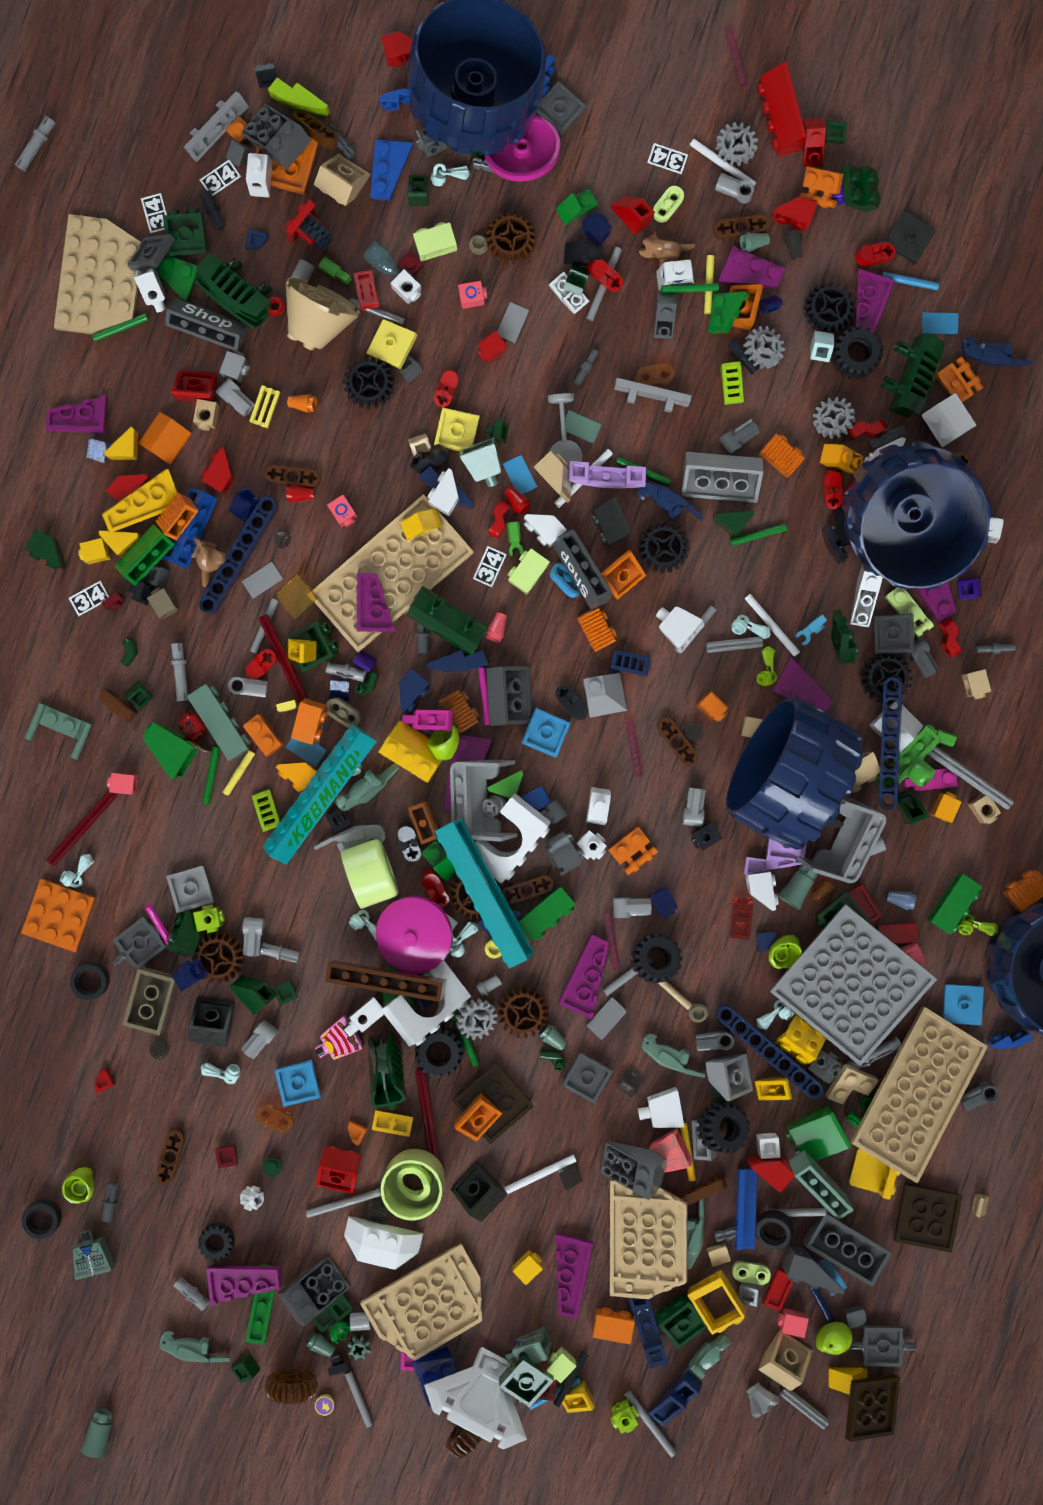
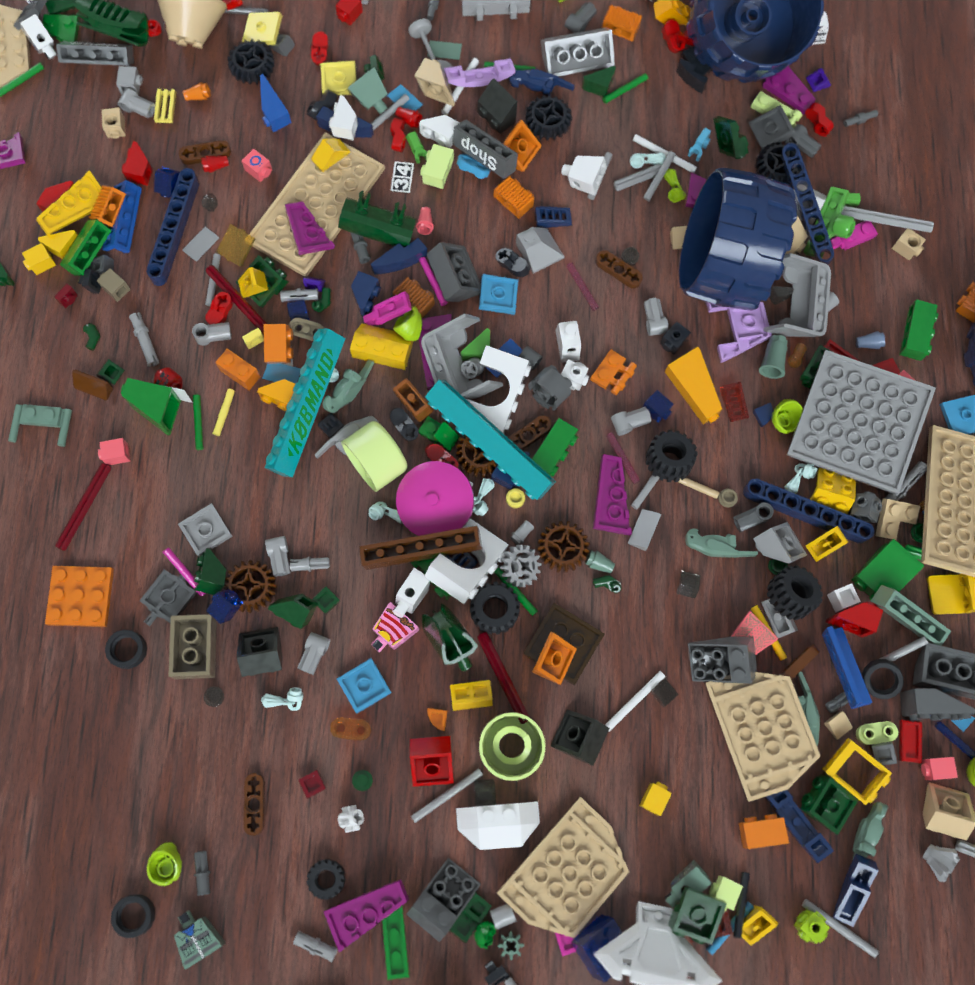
camera: 20 degrees left, 15 degrees down
(67, 877) = (94, 537): light aqua piece -> none
(89, 598) = (42, 303): white sticker -> none
(96, 450) = (22, 177): clear blue slope -> none
(104, 1081) = (165, 748): red tile -> none
(125, 447) = (45, 168): yellow slope -> none
(165, 438) = (82, 152): orange slope -> none
(194, 386) = (91, 107): red slope -> none
(204, 923) = (230, 550): lime brick -> none
(207, 558) = (144, 231): medium nougat animal -> none
(218, 721) = (193, 371): sand green brick -> none
(265, 827) = (266, 449): lime slope -> none
(319, 1344) = (468, 957): sand green cone -> none
(376, 447) = (274, 111): none -> blue slope
(419, 444) = (309, 97): tan slope -> none
(498, 487) = (392, 109): none -> light grey bar
(572, 1268) = (701, 789): magenta wing -> none
(587, 1077) = (646, 590): dark grey plate -> none
(663, 1109) = (731, 597): white torso -> none
(707, 886) = (695, 385): none -> light orange slope
(712, 707) = (639, 226): orange brick -> none
(754, 653) = (659, 176): none -> light grey bar
(761, 887) = (742, 368): white slope -> none
(865, 597) = (734, 102): white slope -> none
(911, 808) = (846, 263): dark green slope -> none
(946, 807) = (875, 253): light orange brick -> none
(967, 927) = (939, 346): lime piece -> none
(976, 684) = (857, 147): tan brick -> none

